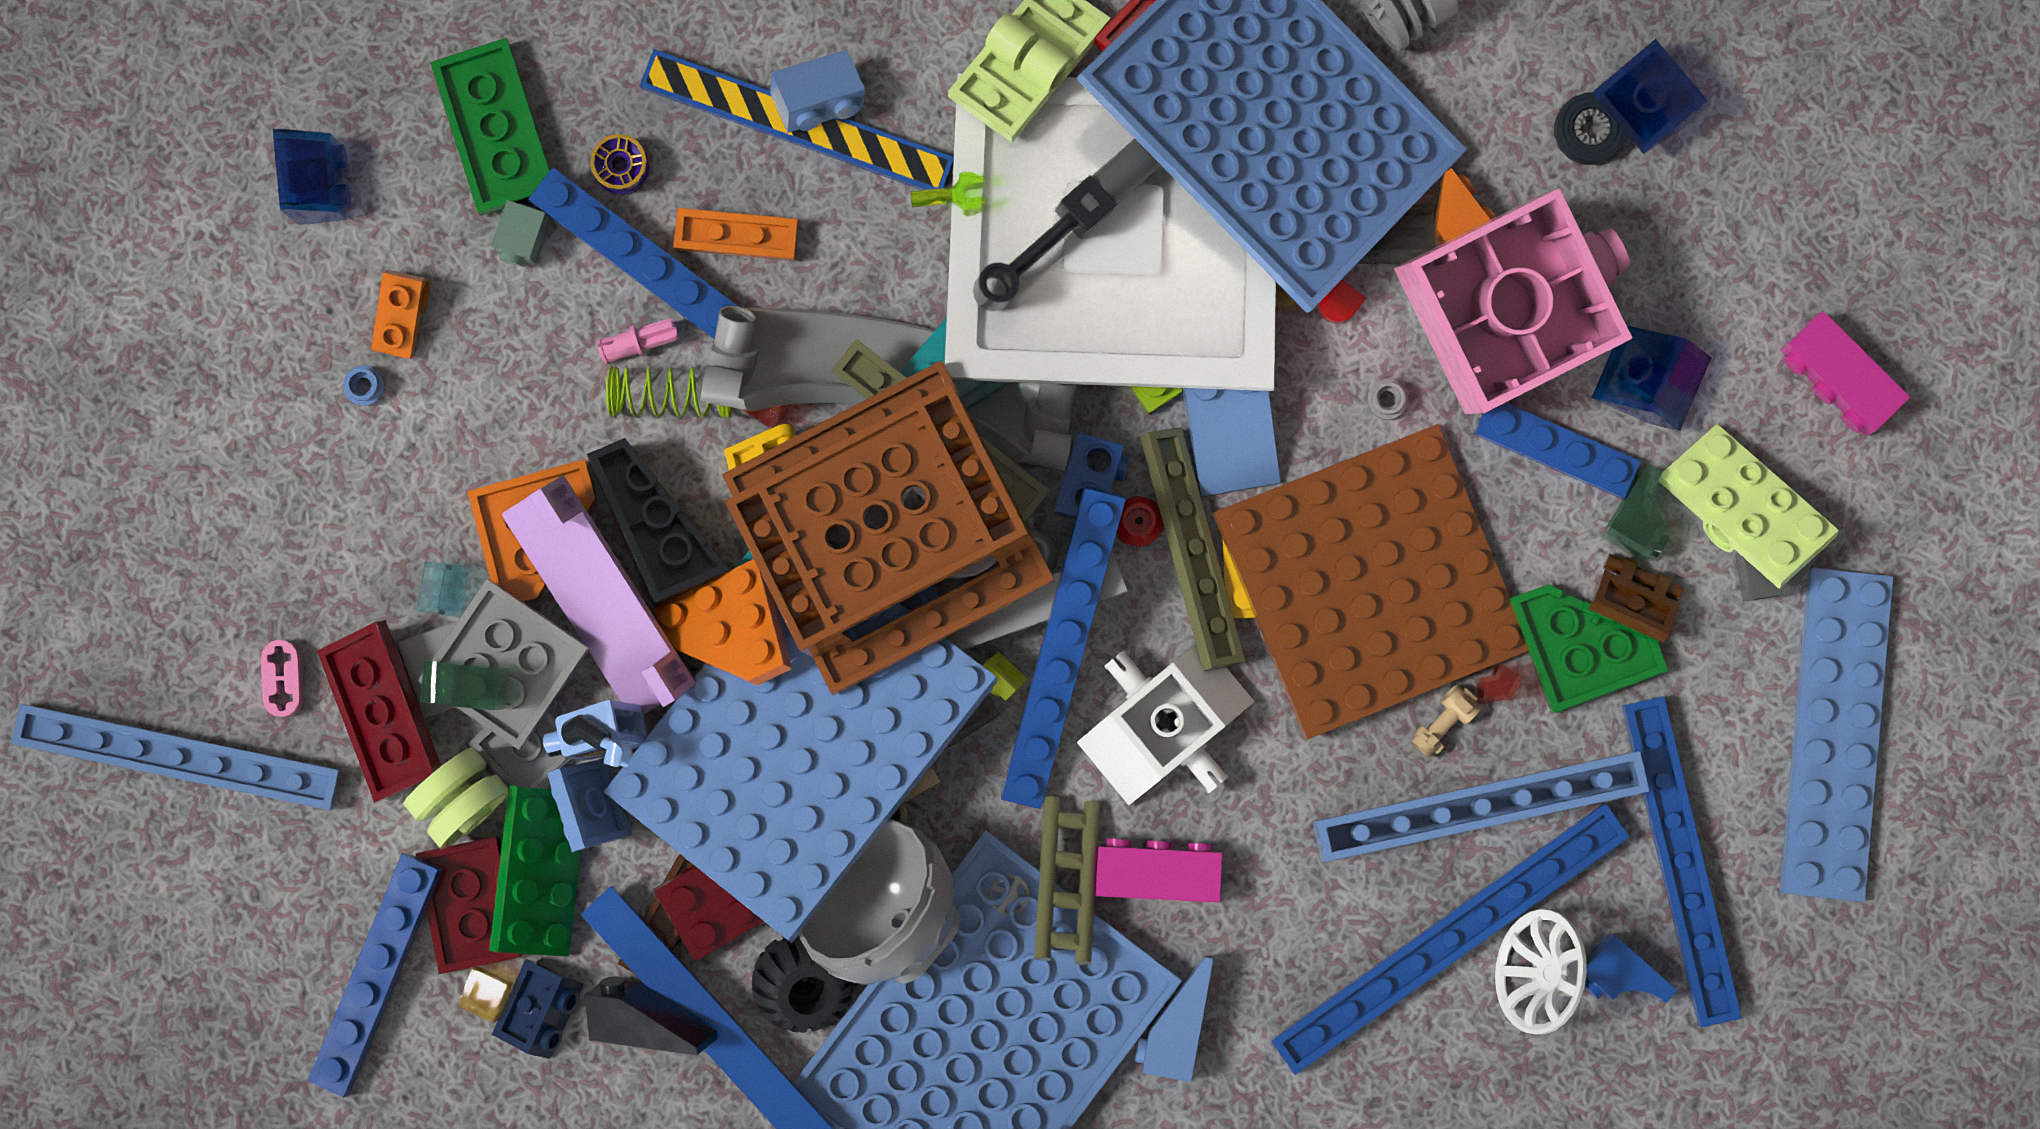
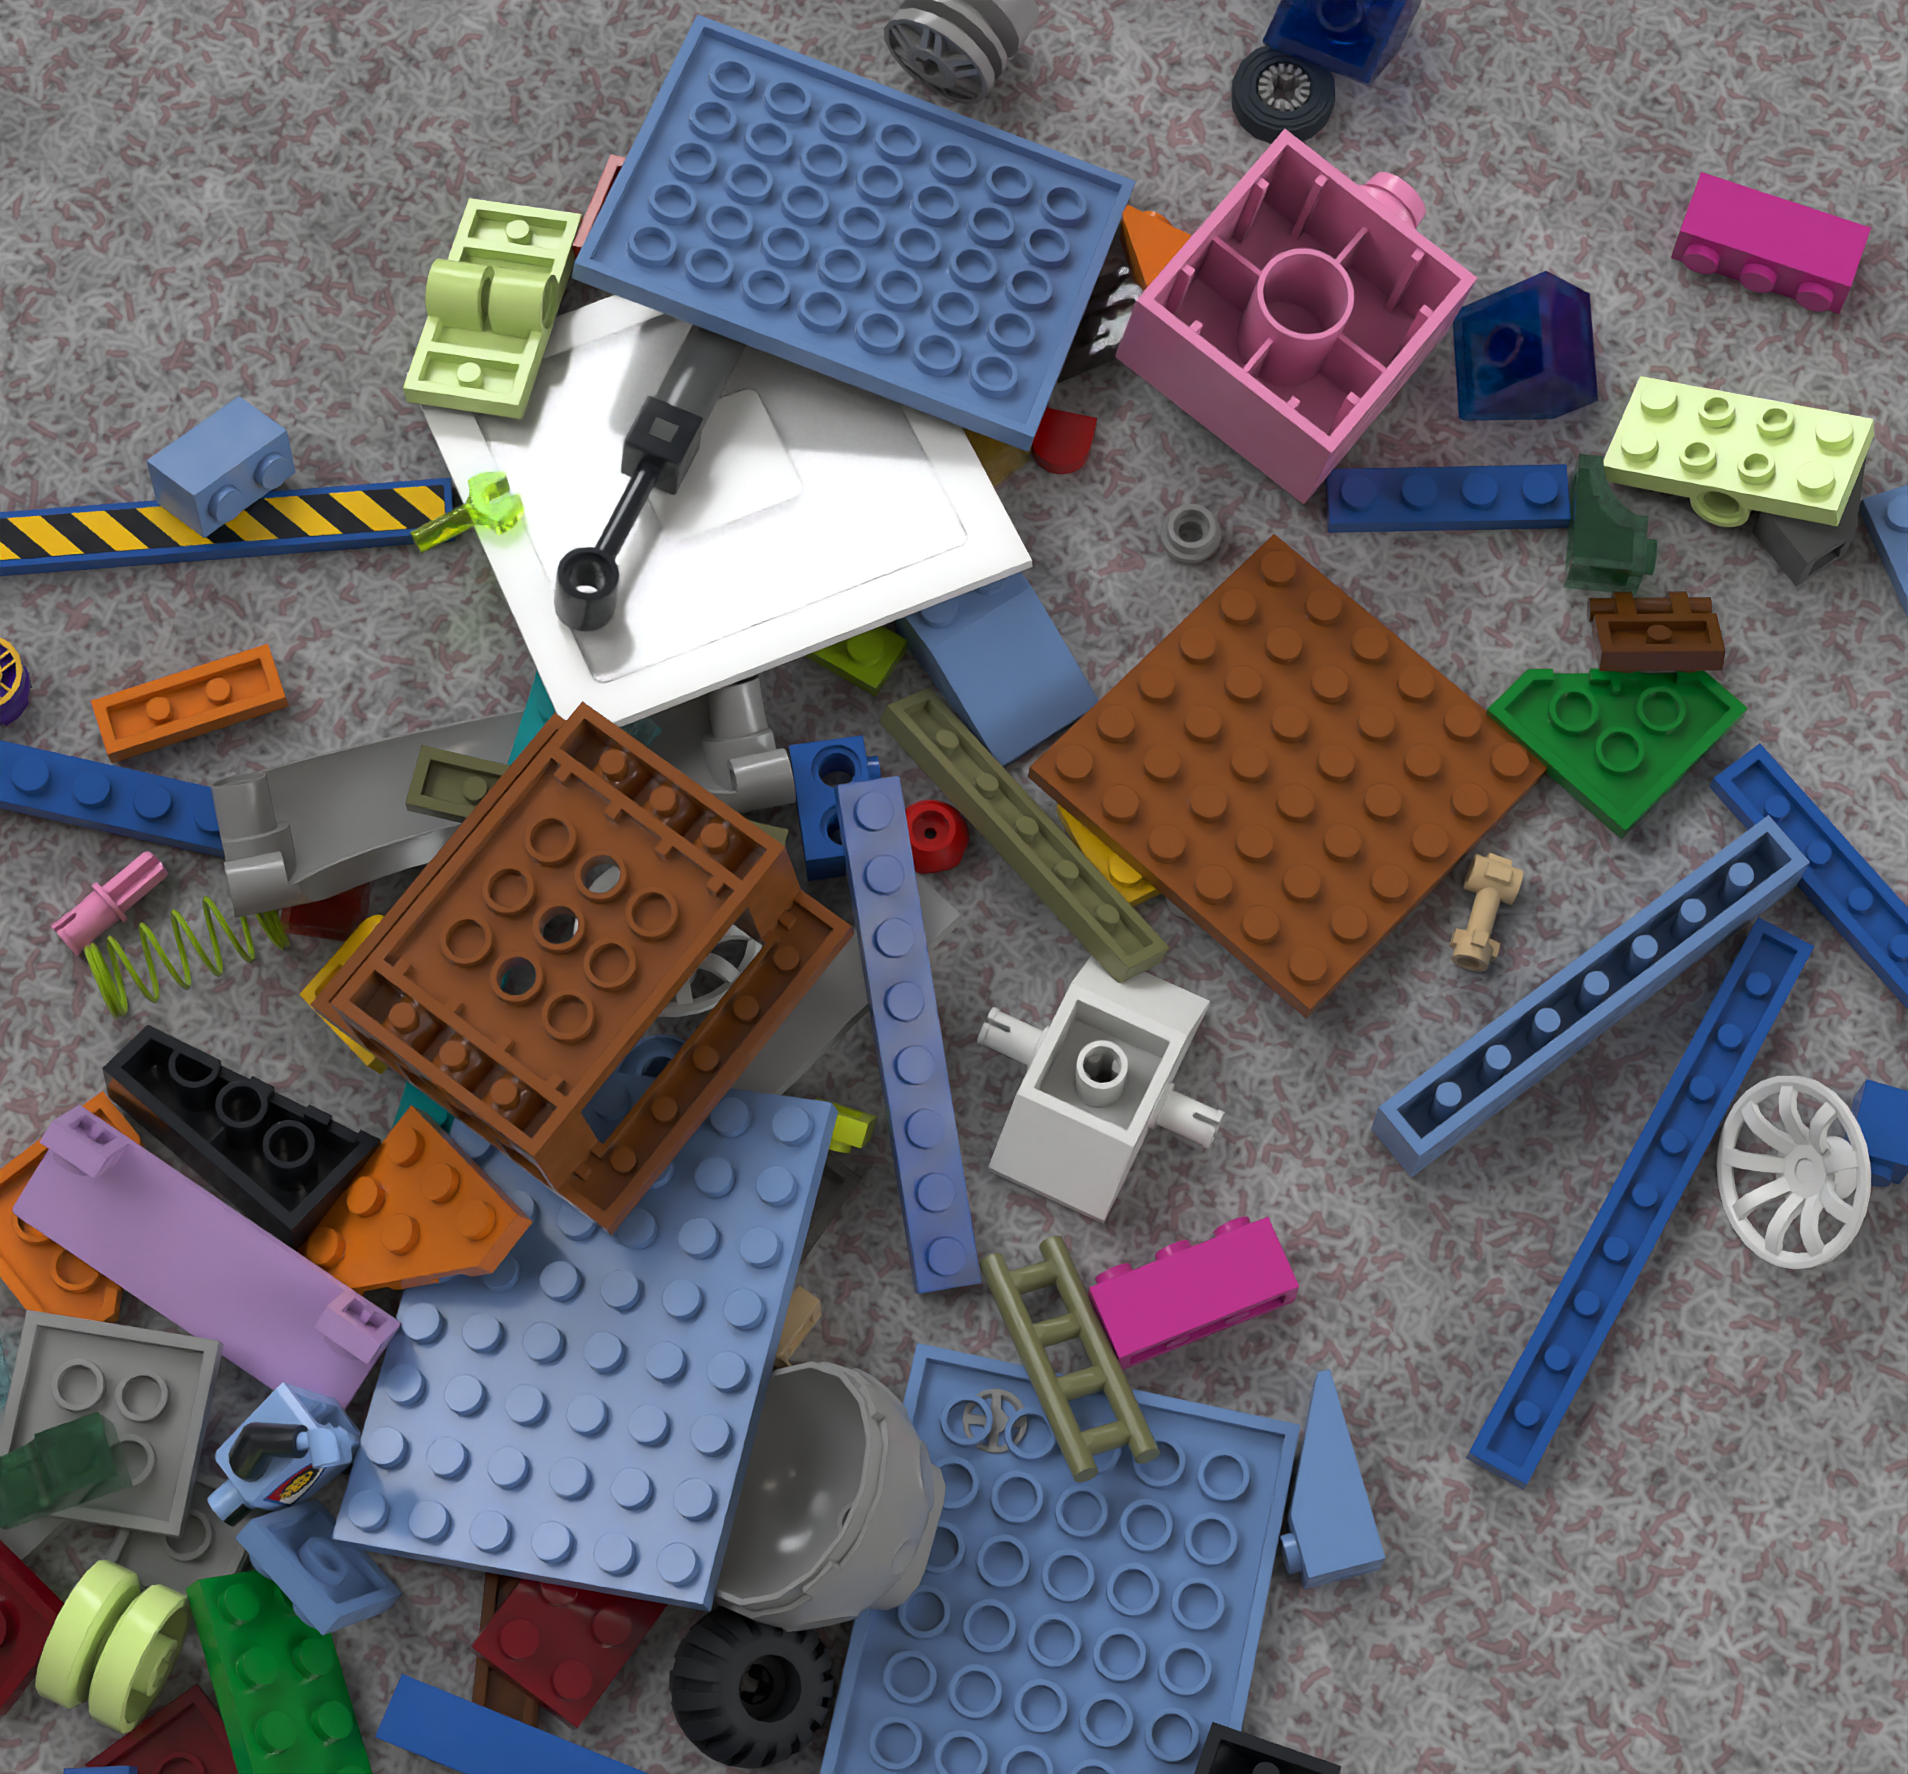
camera: 30 degrees left, 15 degrees down
(1498, 686) = (1530, 828): clear red piece -> none

